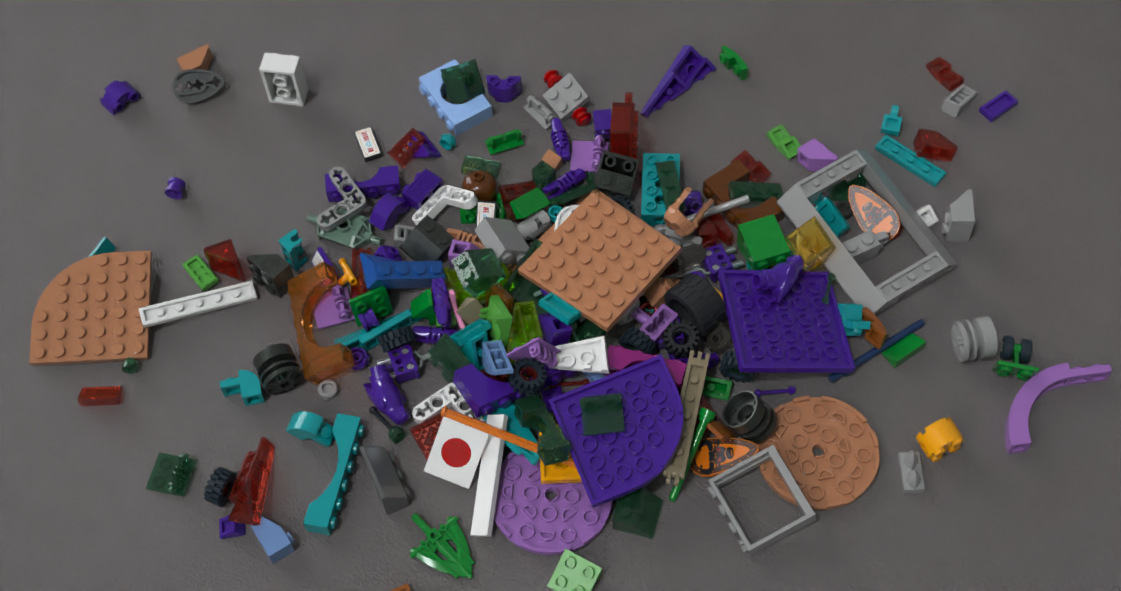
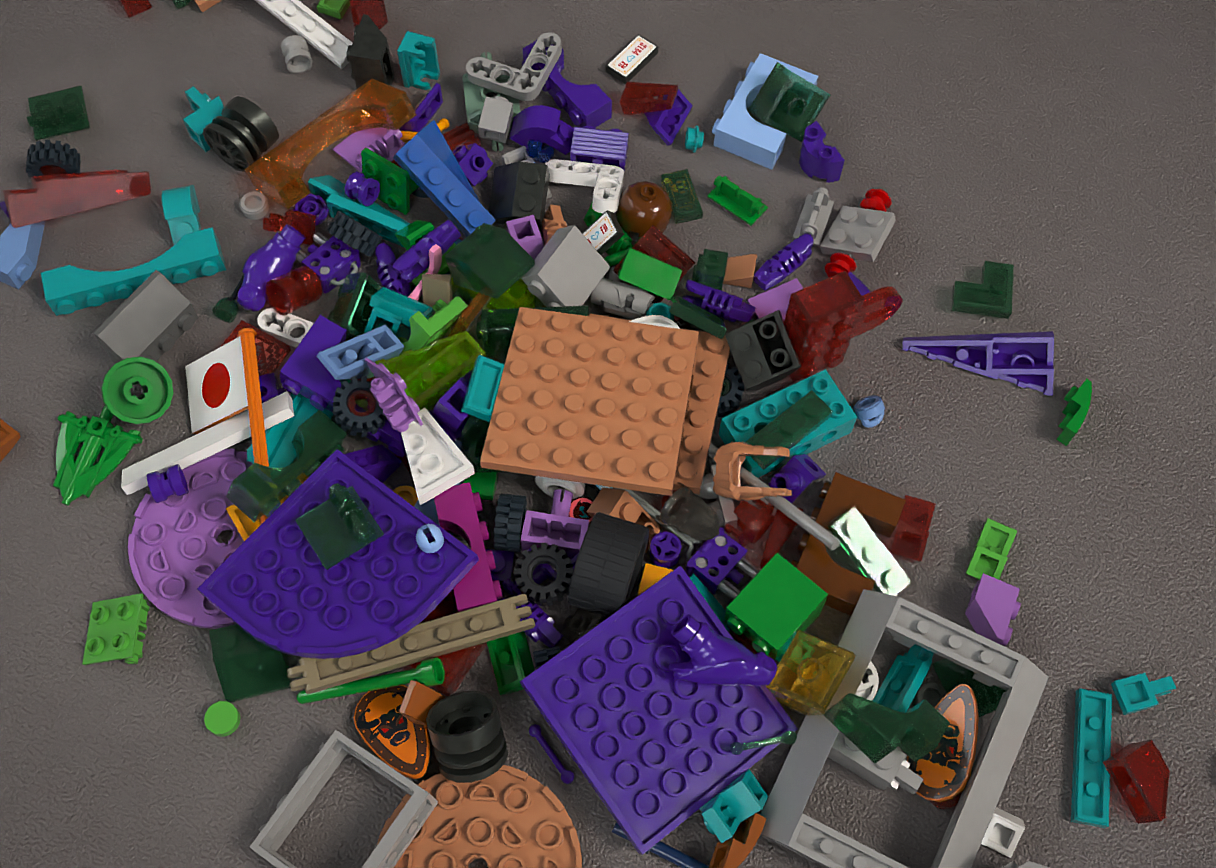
camera: 55 degrees right, 5 degrees up
(231, 316) = (296, 54): none -> light grey wheel
(361, 373) = (300, 221): none -> clear red plate
(369, 228) = (495, 119): none -> light grey brick
(405, 219) = (535, 152): none -> clear blue arm
(413, 388) = (293, 290): none -> clear red wheel
(429, 498) = (155, 384): none -> green wheel
(503, 506) = (167, 483): none -> dark purple wheel
(638, 375) = (422, 541): none -> light blue hinge
(643, 61) = (990, 297): none -> clear green plate
(662, 543) = (222, 718): none -> bright green tile
(674, 147) = (870, 408): none -> medium blue tile
(857, 227) = (881, 729): none -> clear green arch

